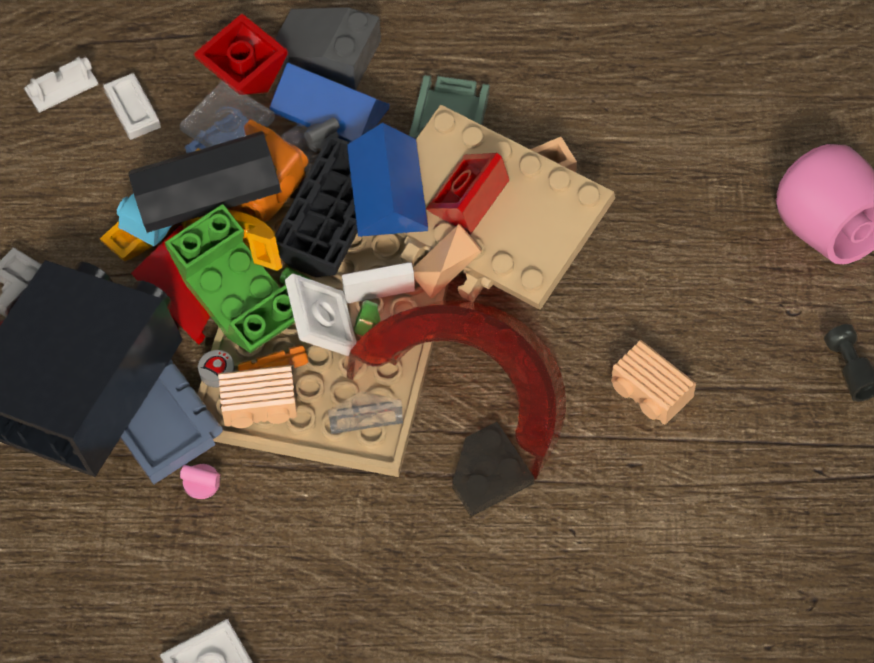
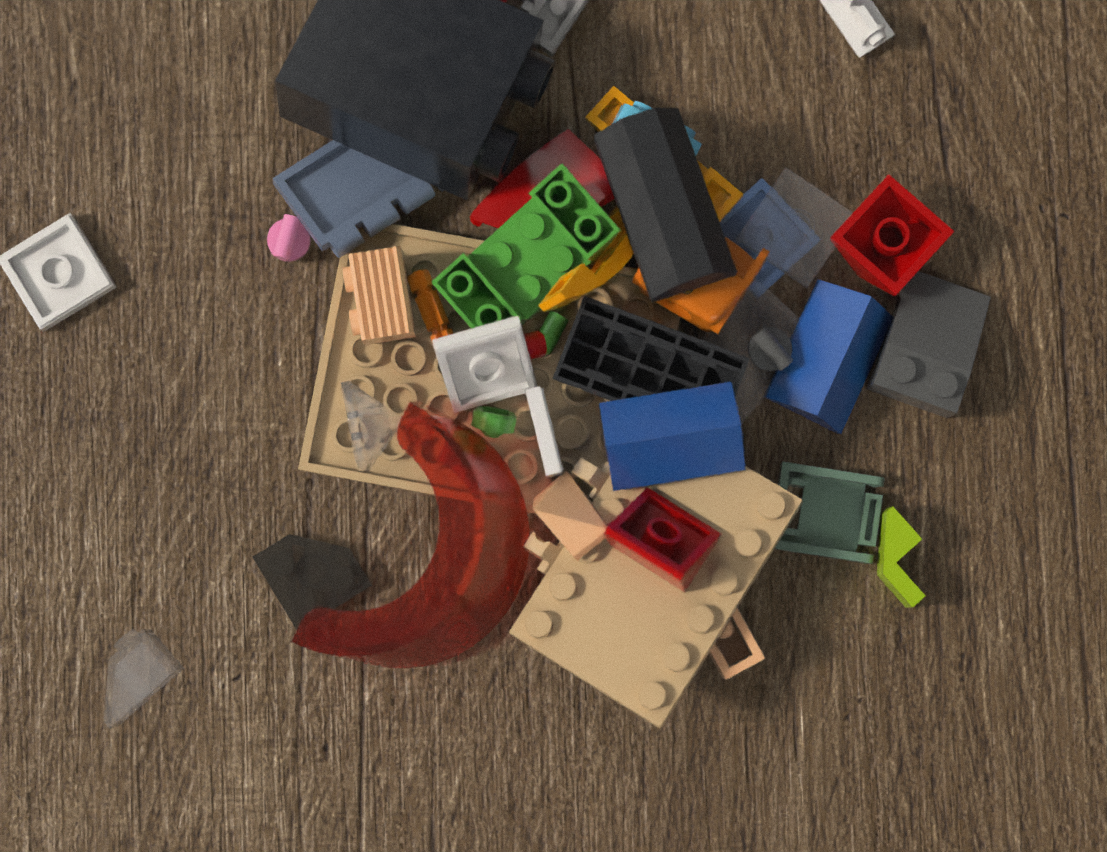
camera: 90 degrees right, 25 degrees up
(132, 106) = (826, 104): white tile -> none
(212, 364) = (425, 244): light grey tile -> none
(475, 66) = (896, 540): none -> lime slope
(570, 600) = (136, 674): none -> clear slope
(652, 383) = (425, 774): light nougat brick -> none

